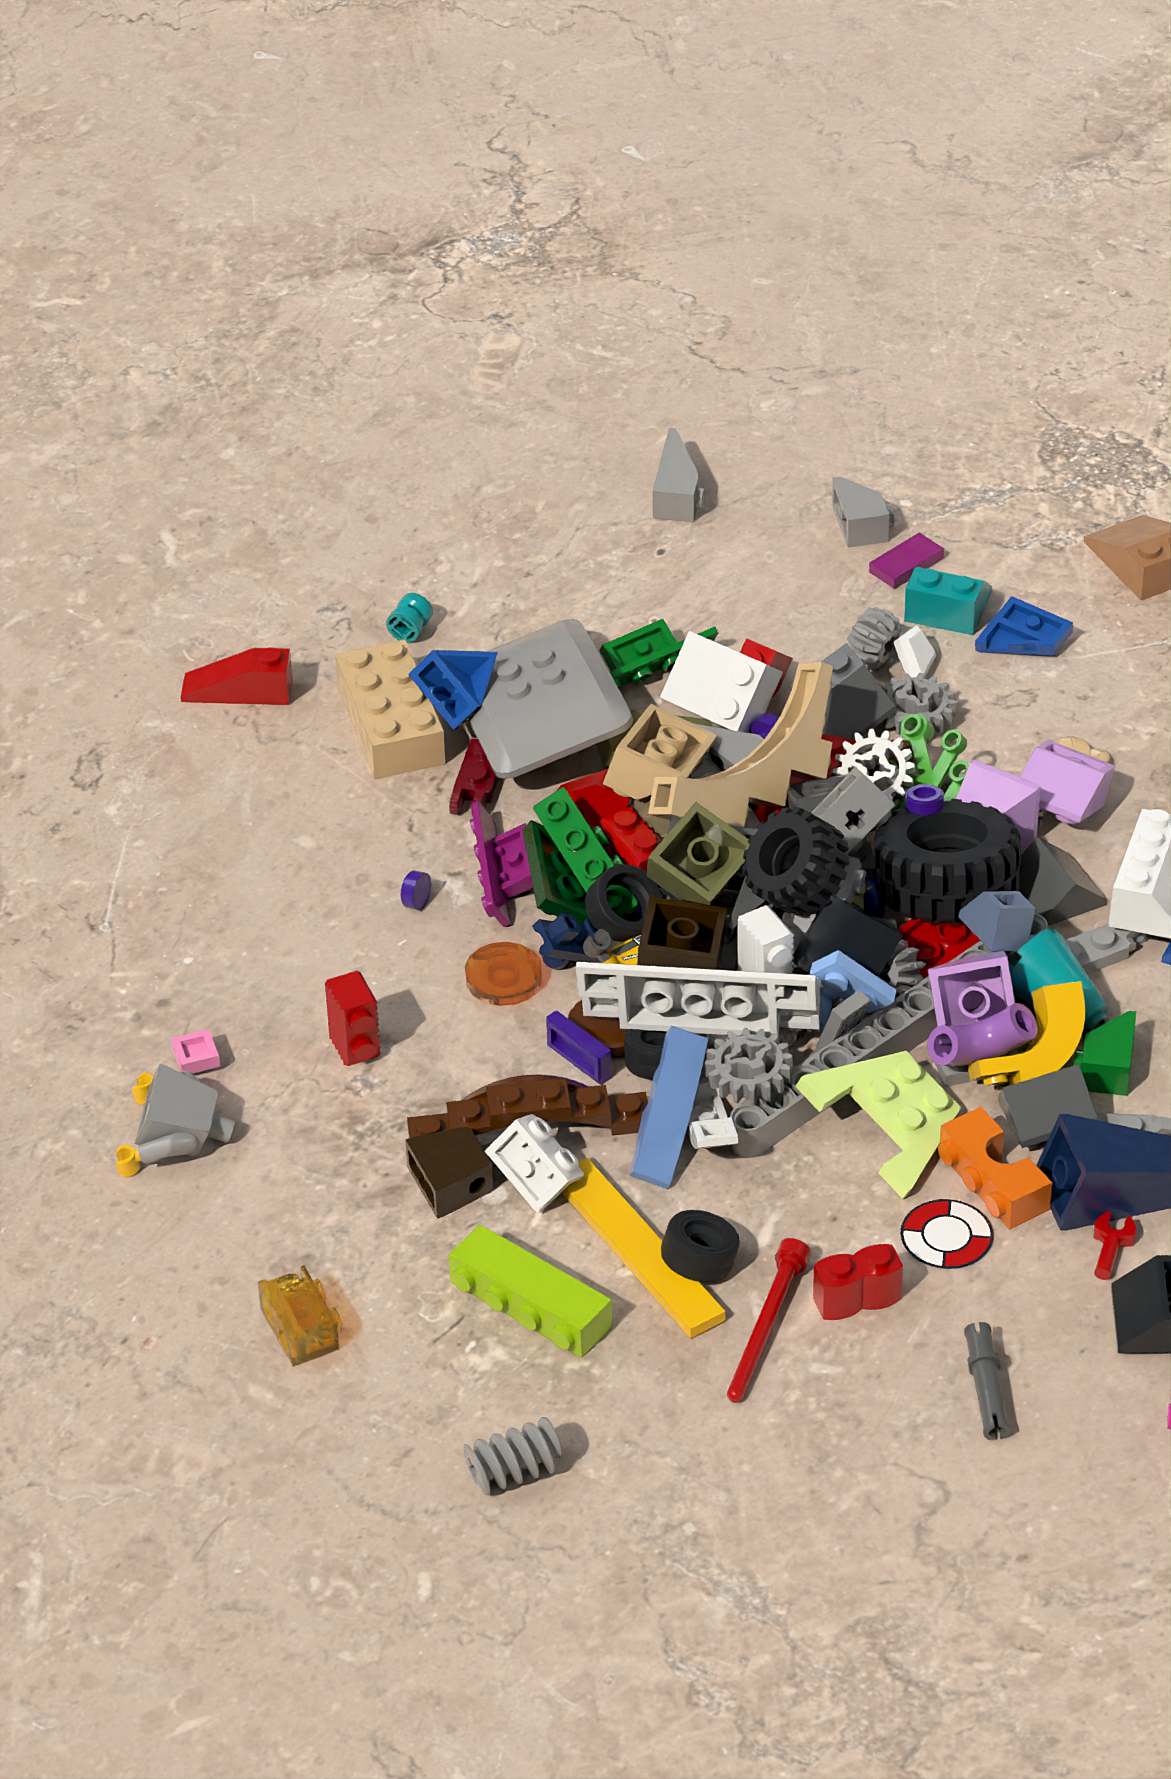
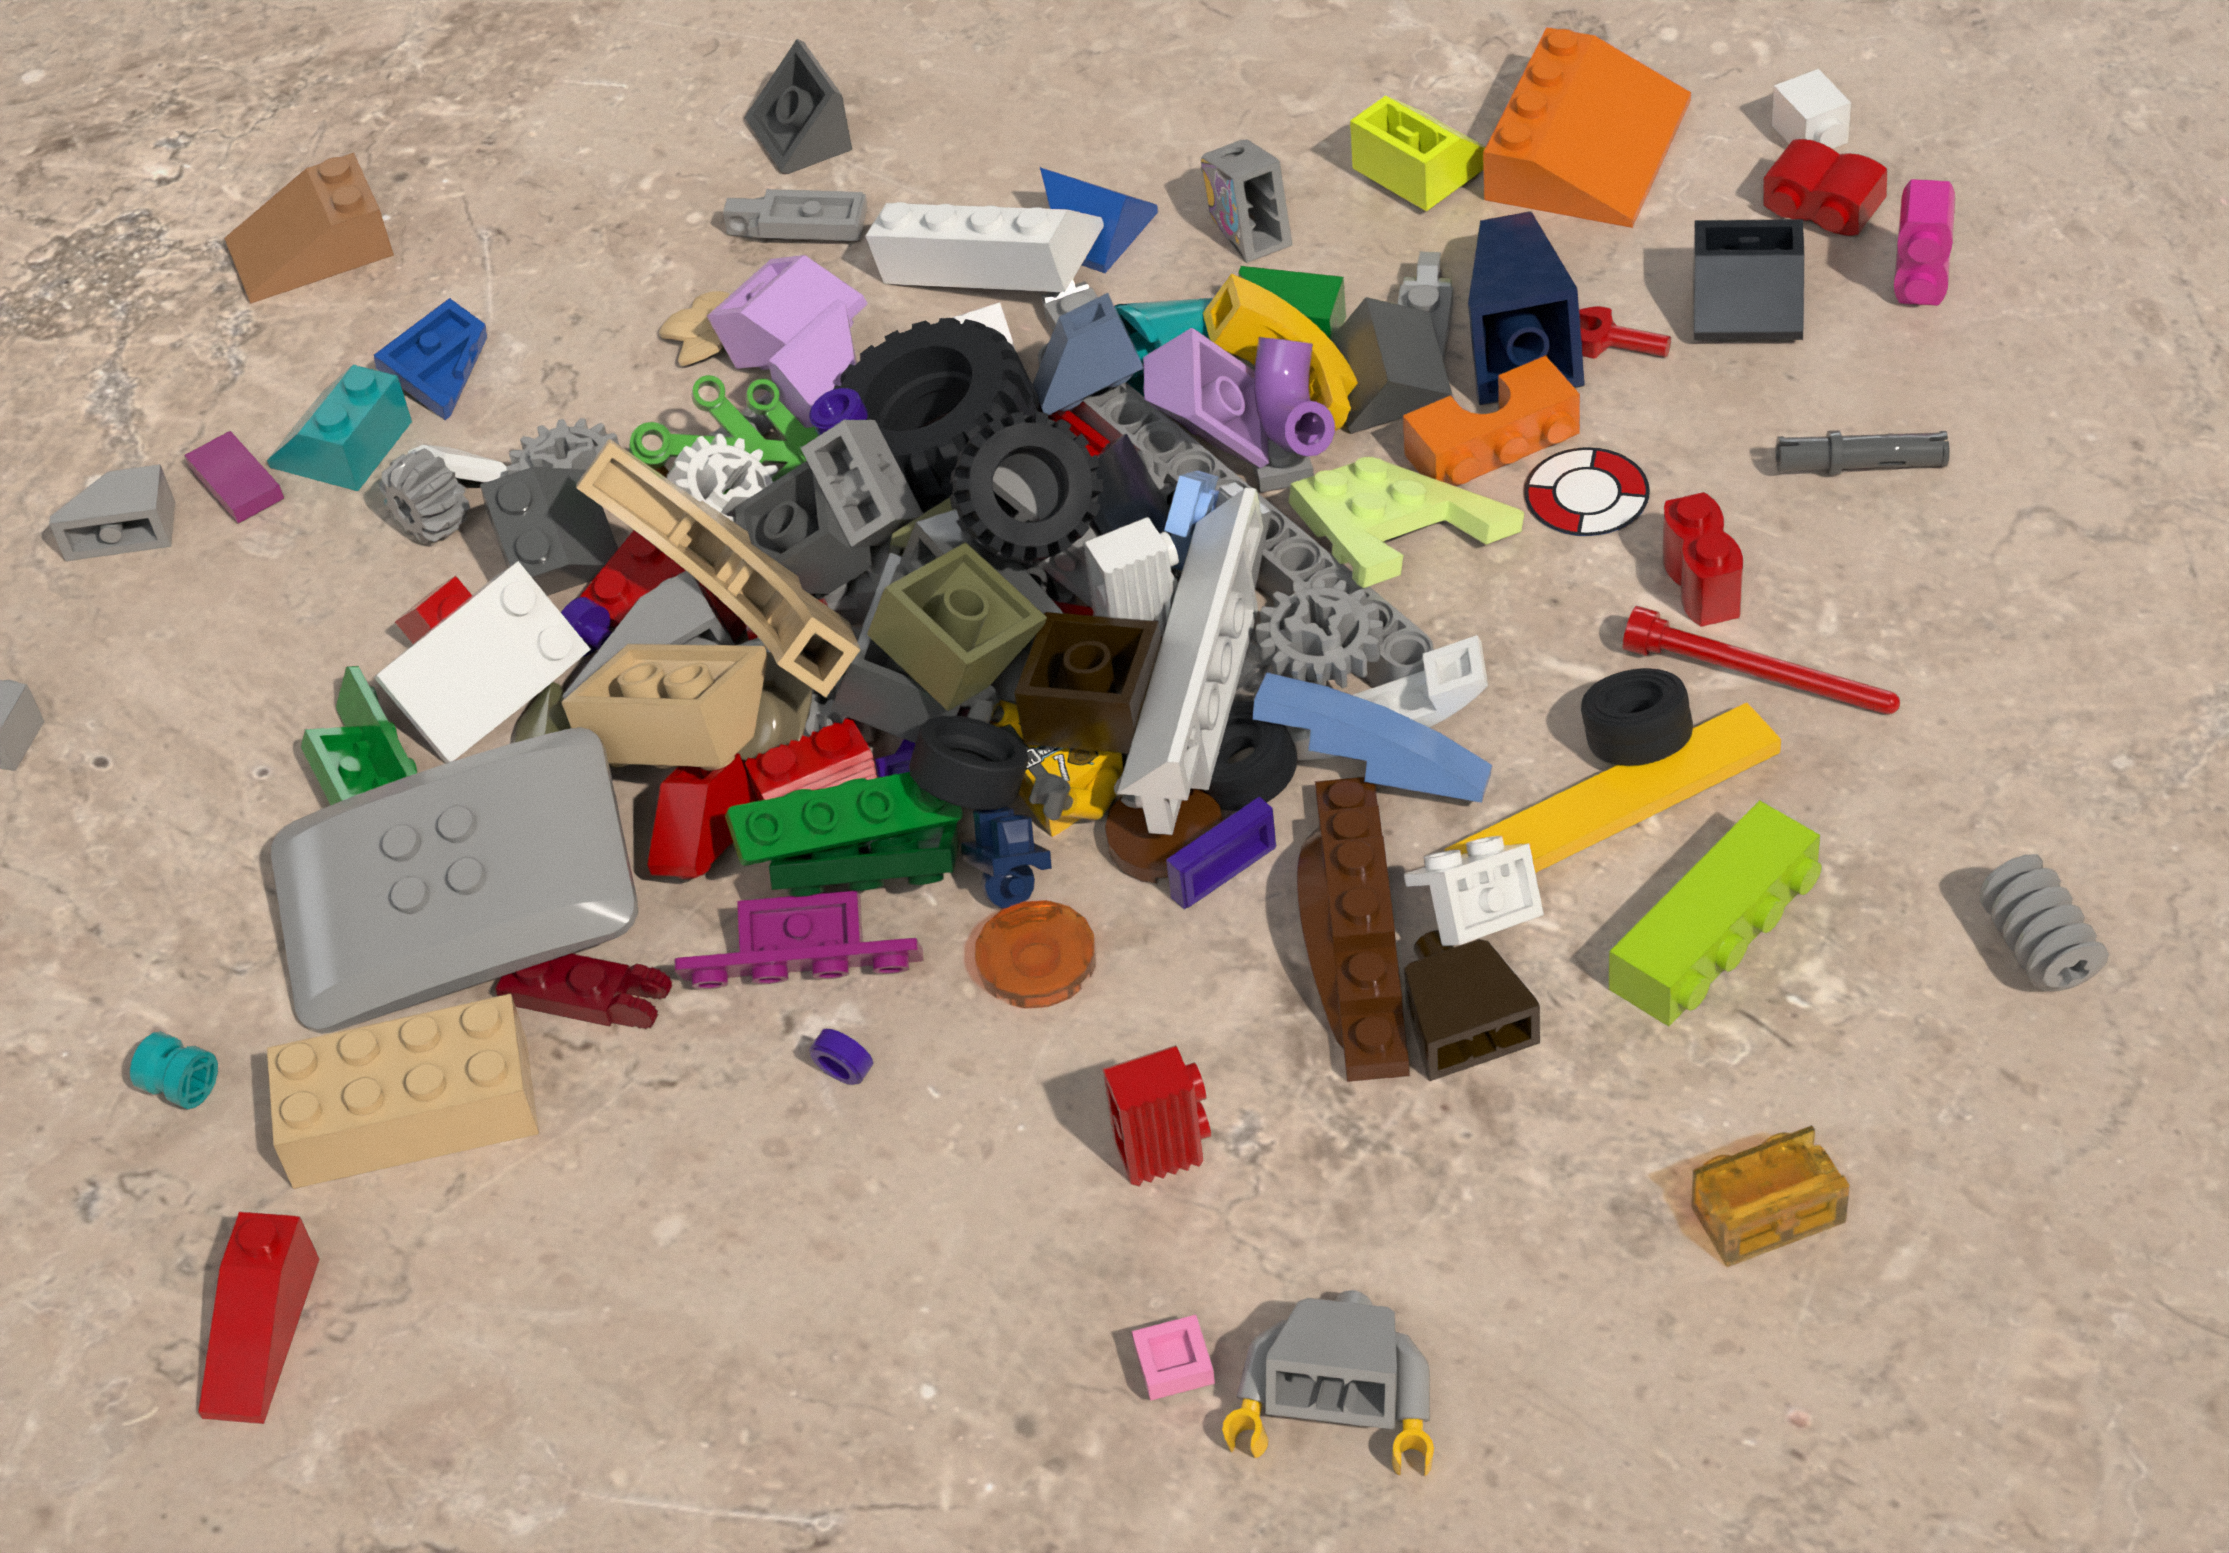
camera: 80 degrees left, 5 degrees up
(454, 681) = (418, 964): blue slope -> none

